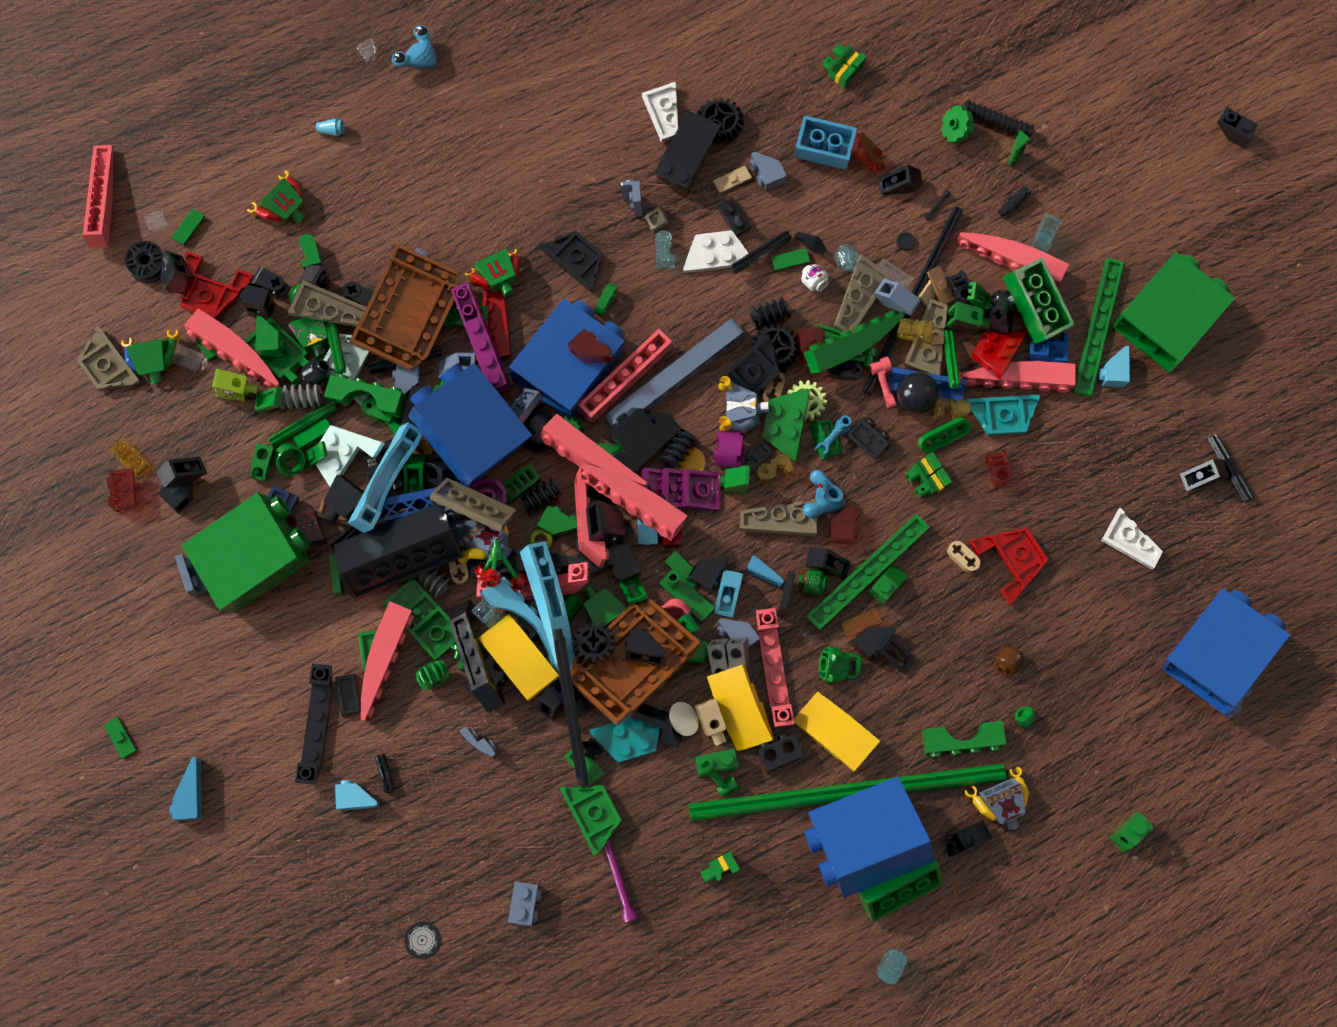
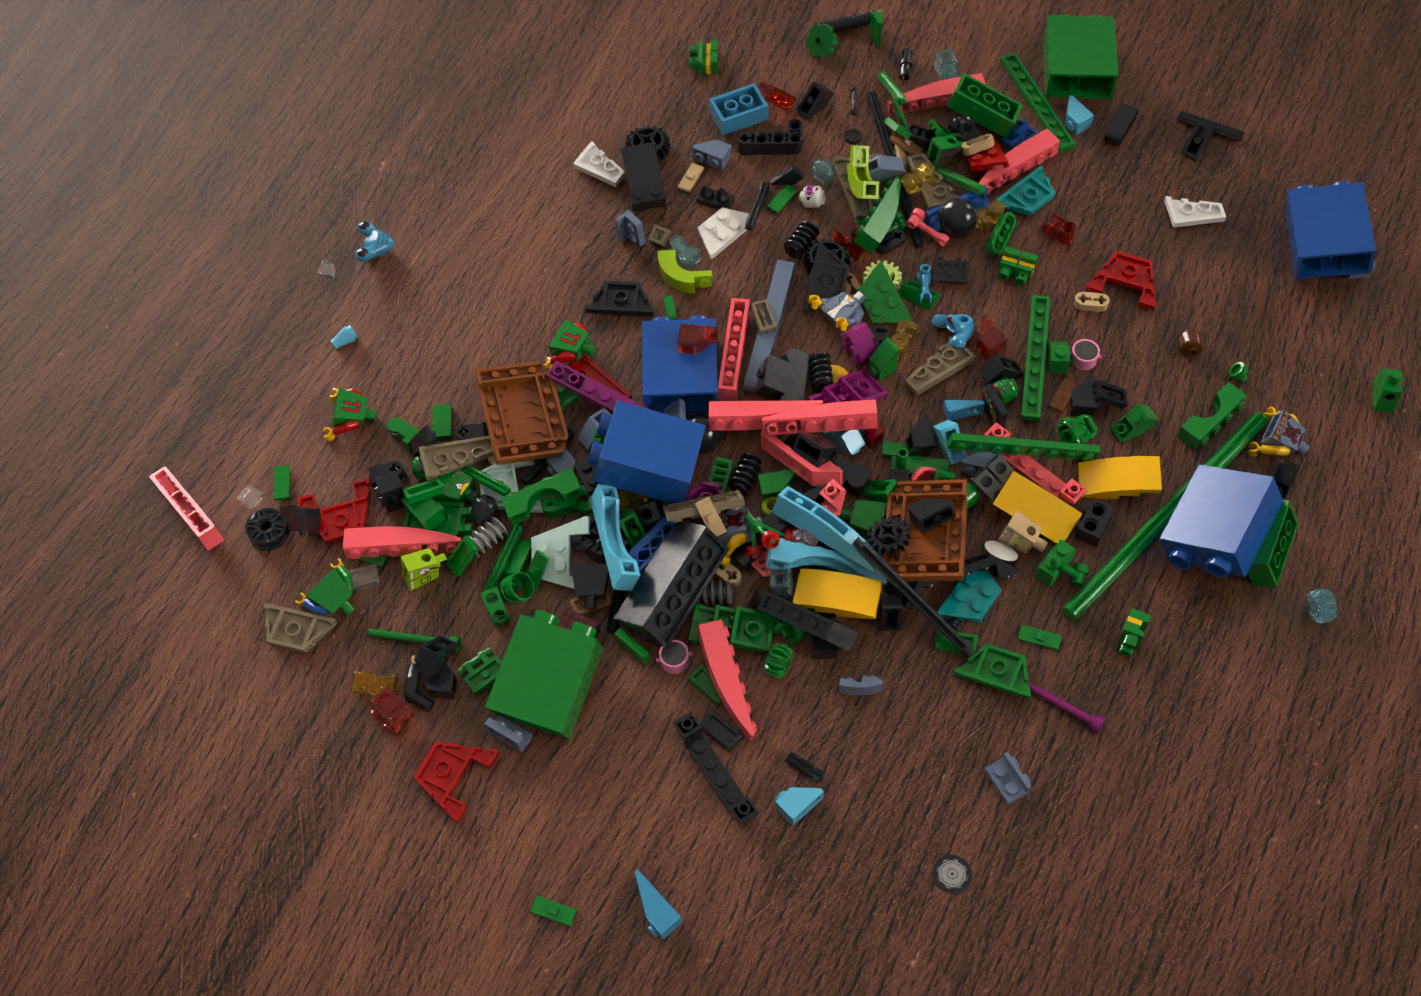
camera: 30 degrees left, 15 degrees down
(124, 567) = (444, 769): none -> red wing
(150, 485) = (412, 689): none -> black arm
(209, 513) = (484, 675): none -> green plate
(211, 466) = (409, 637): none -> green piece
(278, 322) = (423, 491): none -> green tile
(348, 265) = (442, 421): none -> green tile
(362, 610) = (674, 658): none -> piece
(465, 521) = (710, 516): none -> tan piece
(527, 594) = (805, 537): none -> clear tile
(638, 256) = (681, 279): none -> lime arch
(651, 812) = (1039, 637): none -> green piece
(659, 593) = (899, 475): none -> black tile
(666, 379) = (767, 328): none -> dark tan tile
(782, 653) = (1017, 446): none -> green plate
(807, 182) = (772, 142): none -> black beam
(864, 292) = (859, 176): none -> lime arch
(893, 694) = (1135, 423): none -> green slope
(910, 601) = (1085, 354): none -> piece
(945, 264) = (897, 127): none -> green tile
(958, 252) = (899, 114): none -> green piece
(976, 220) = (892, 87): none -> green axle
(998, 335) = (978, 144): none -> tan beam
(1149, 406) = (1121, 124): none -> black beam

